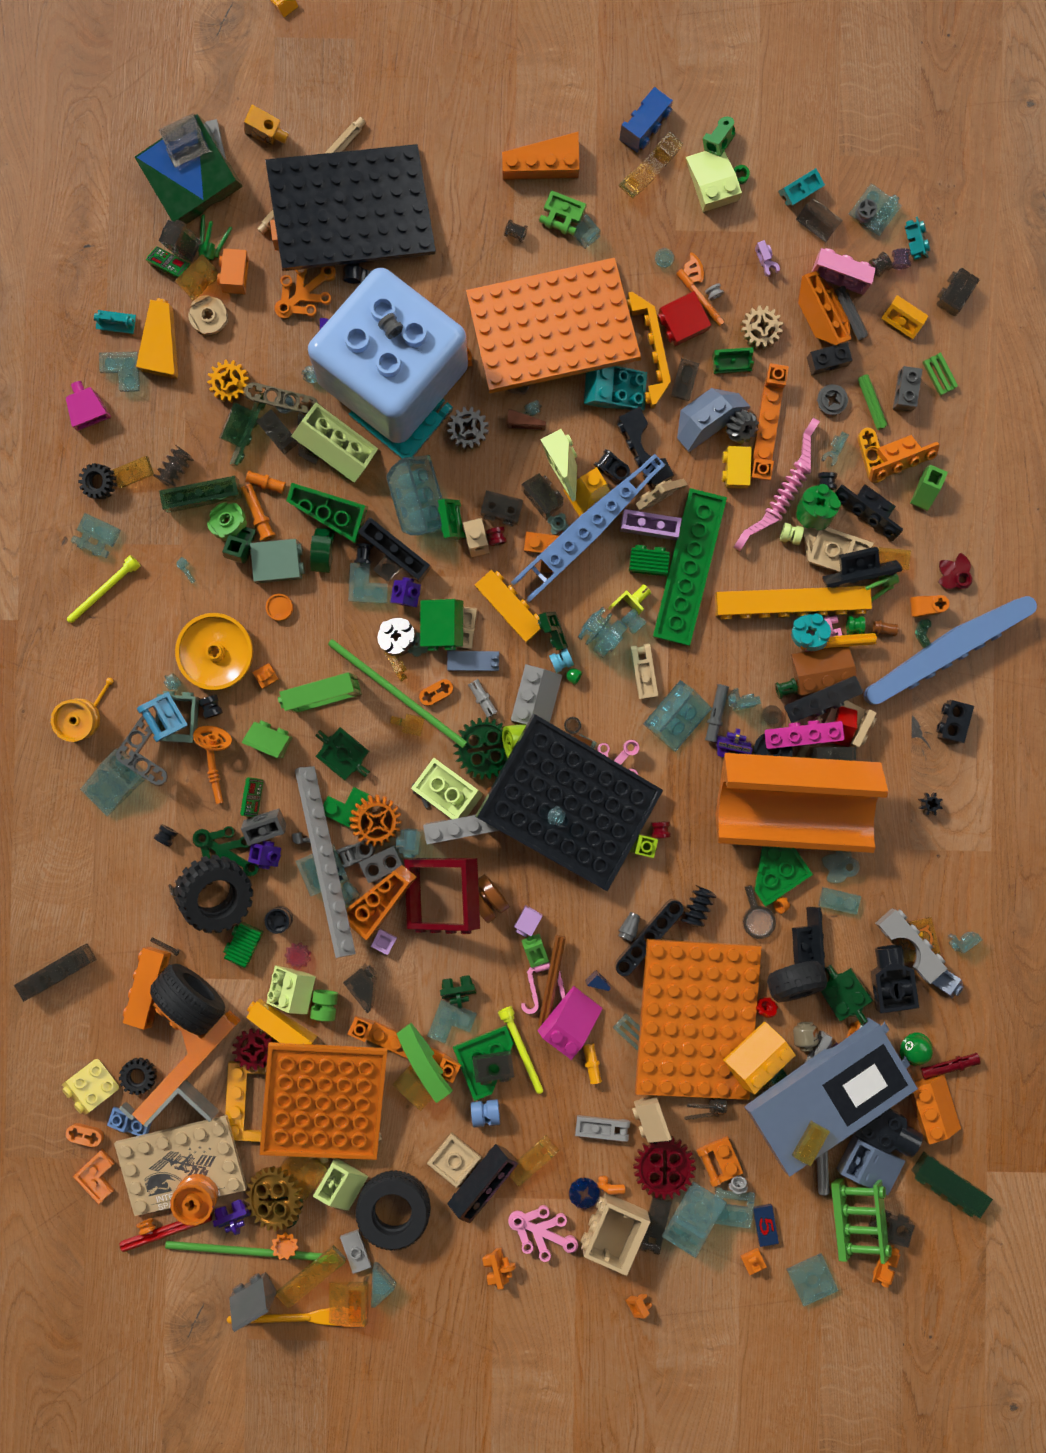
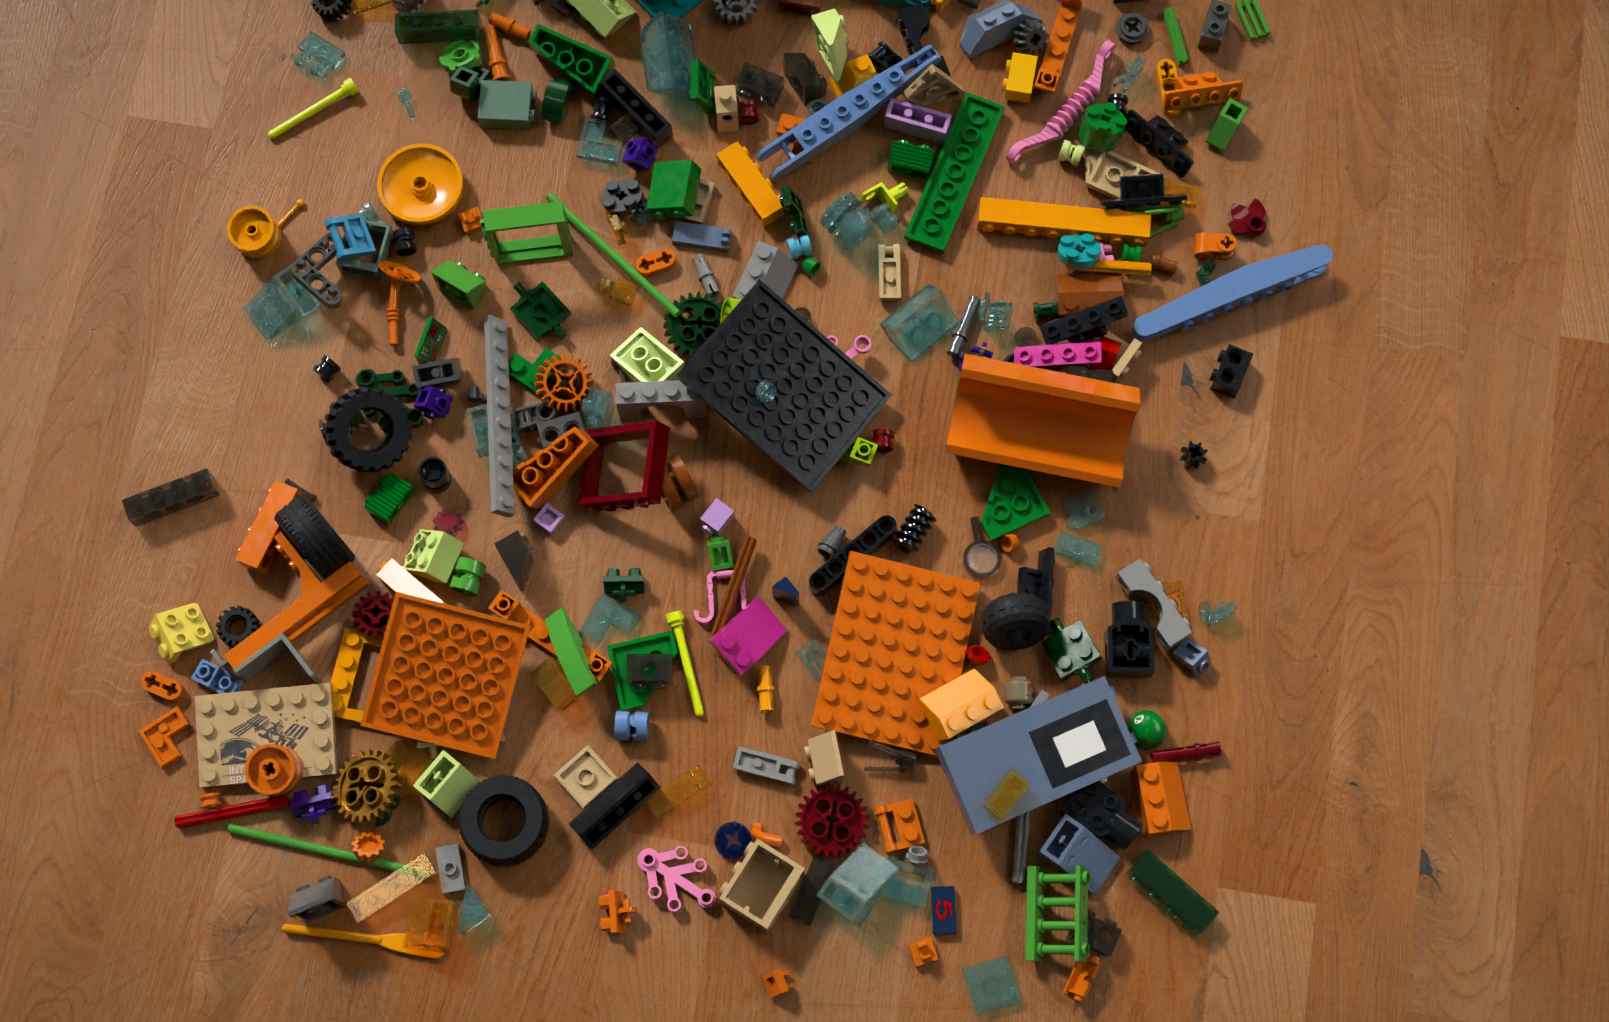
camera: 10 degrees right, 15 degrees down
(279, 607) = (500, 153): orange piece -> none

